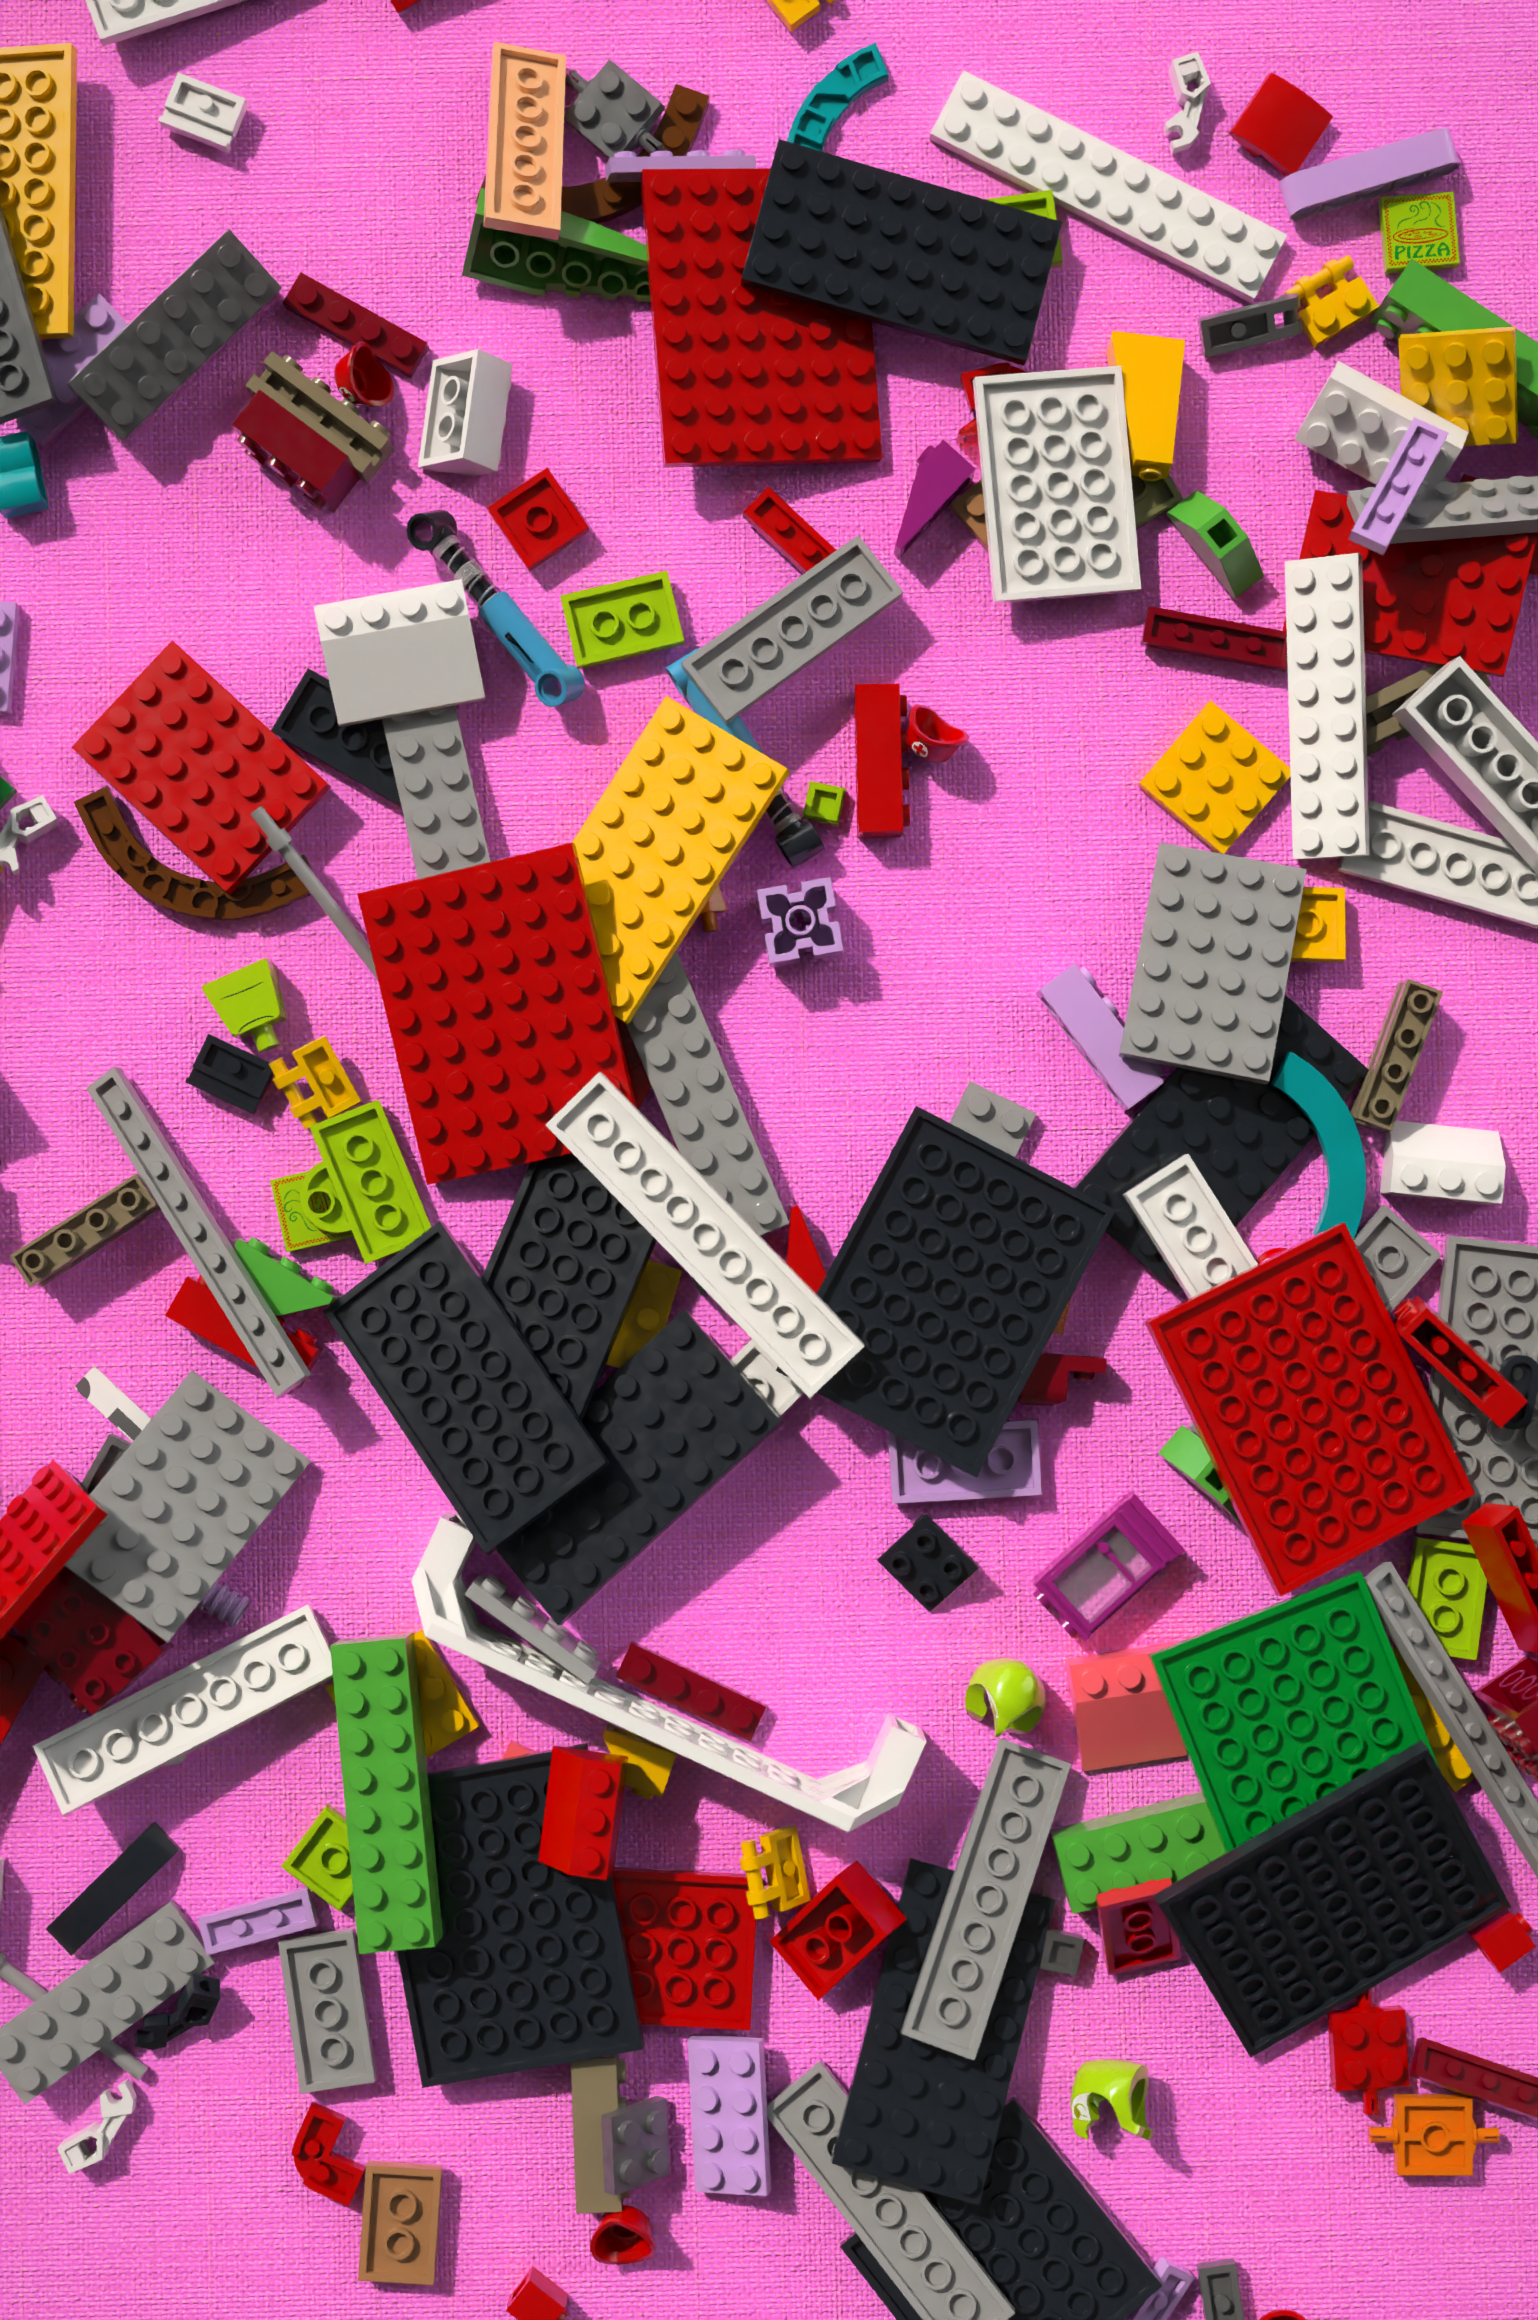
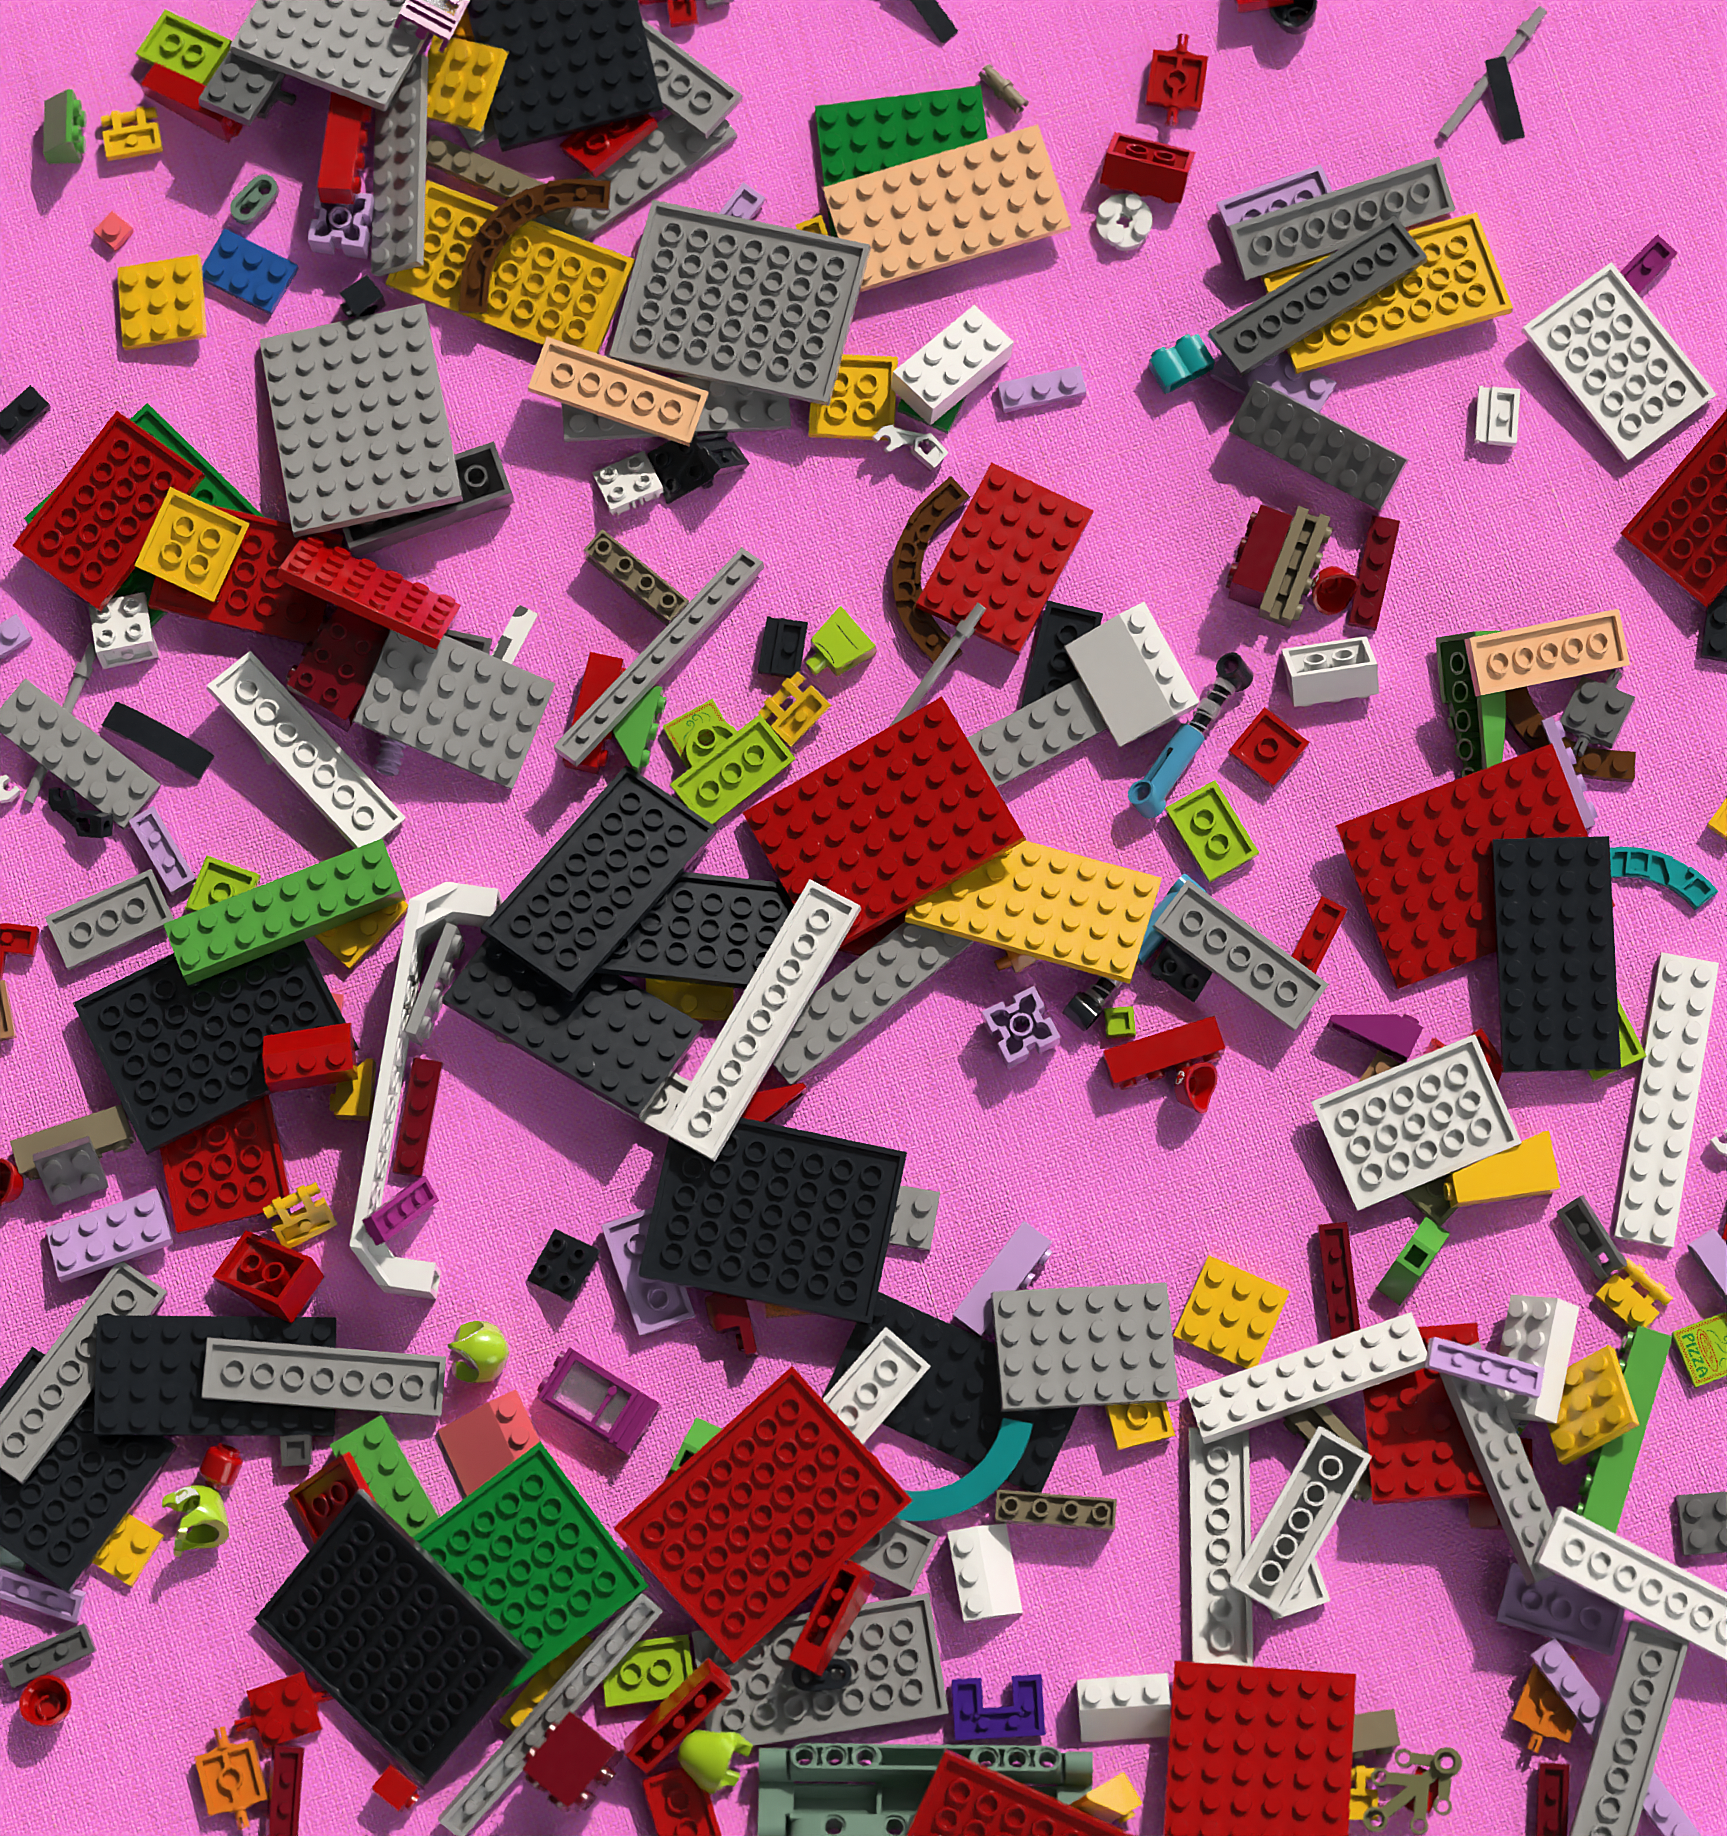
camera: 80 degrees right, 10 degrees down
(784, 711) = (1180, 971): none -> black hinge
(813, 1751) = (400, 1210): none -> magenta plate
(1054, 2050) = (221, 1466): none -> red head
(1121, 2187) = (129, 1550): none -> yellow plate

